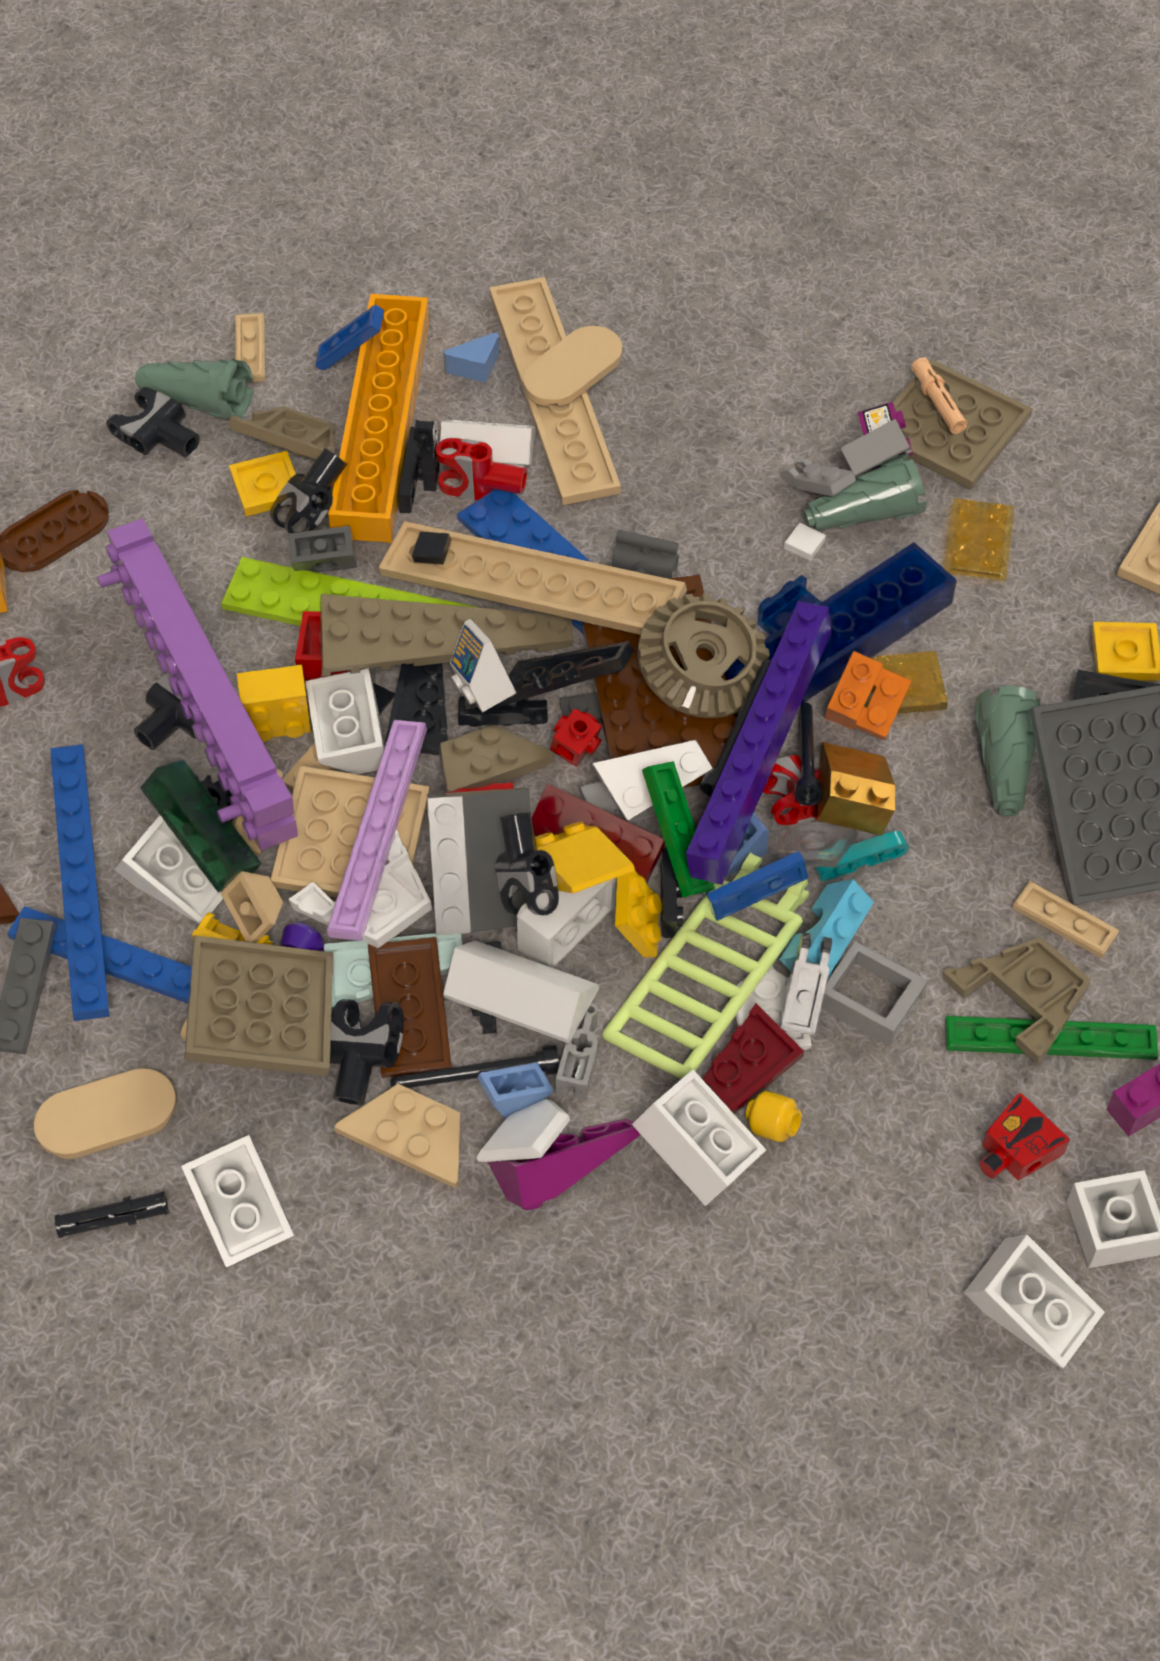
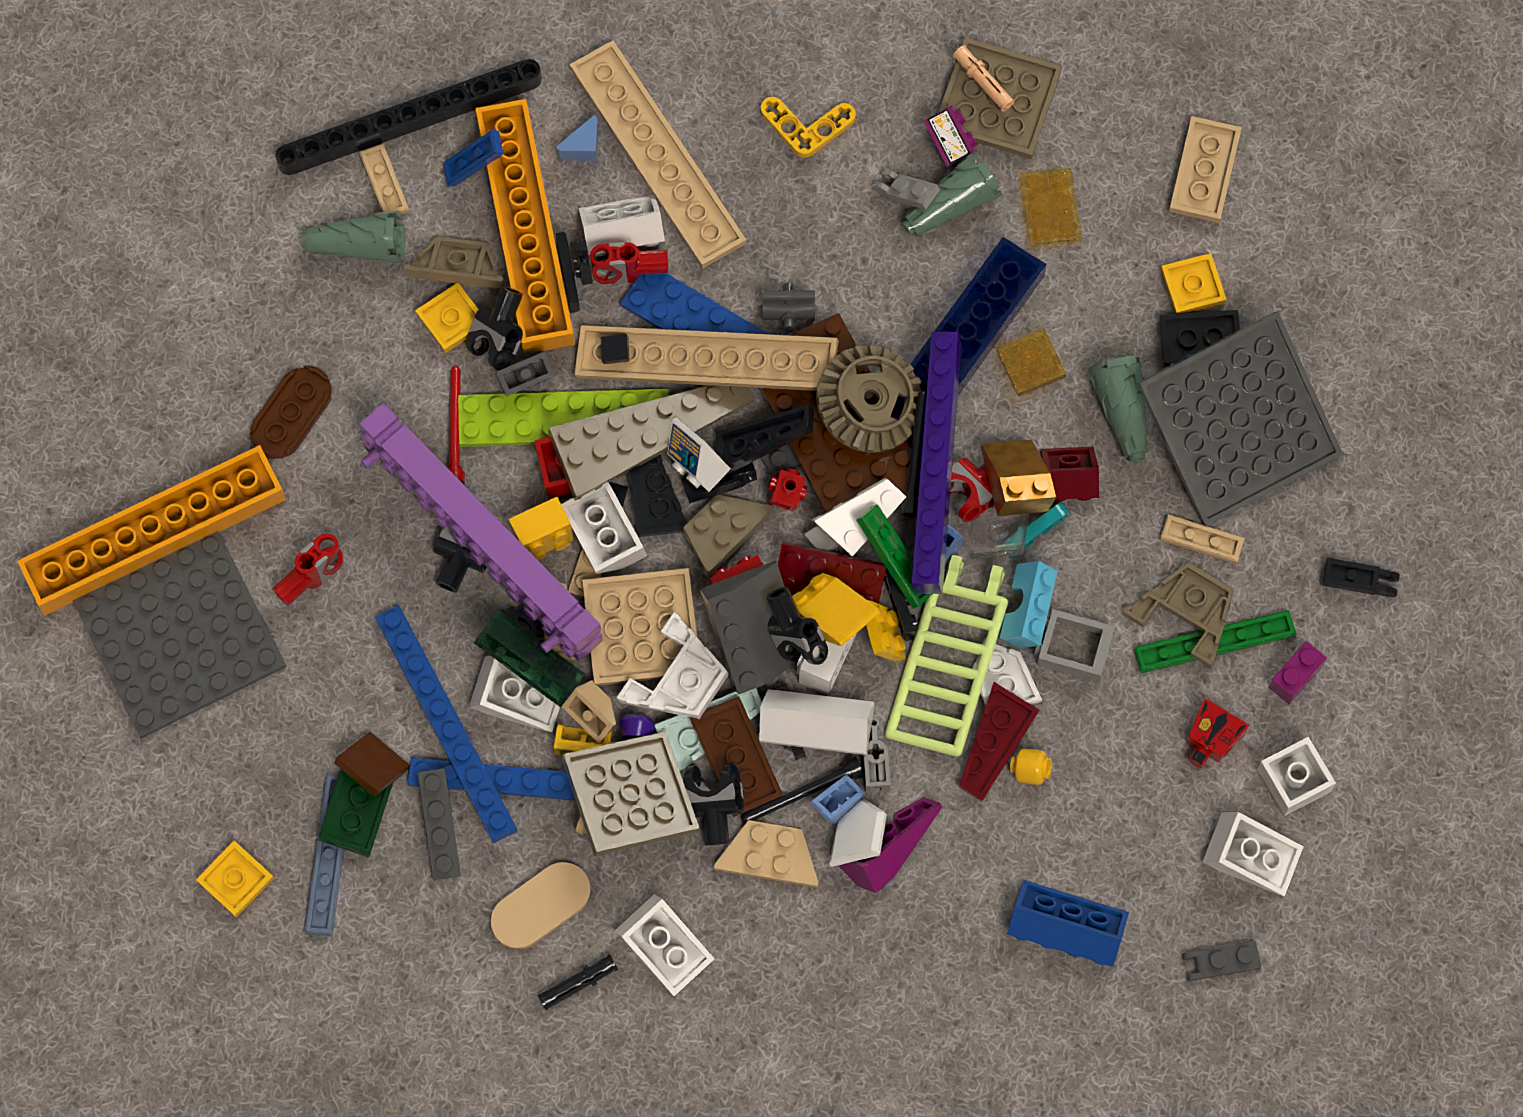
camera: 15 degrees left, 15 degrees up
(155, 425) = (337, 286): black connector -> none
(215, 605) = (454, 446): none -> red piece
(293, 294) = (396, 114): none -> black beam
(377, 831) = (664, 619): lavender tile -> none
(572, 366) = (669, 130): tan tile -> none
(699, 1137) = (984, 801): white slope -> none
(728, 409) = (808, 134): none -> yellow beam
(757, 885) = (968, 585): blue tile -> none
(762, 1320) = (1068, 923): none -> blue slope
(777, 610) = (919, 321): clear blue bracket -> none
(805, 541) = (911, 249): white tile -> none
(806, 988) = (1028, 660): hinge -> none
(808, 788) = (983, 491): black piece -> none
(852, 692) = (993, 386): orange brick -> none
(875, 448) = (950, 156): light grey hinge -> none
(923, 808) = (1073, 472): none -> dark red slope
(959, 1427) = (1224, 960): none -> dark grey hinge

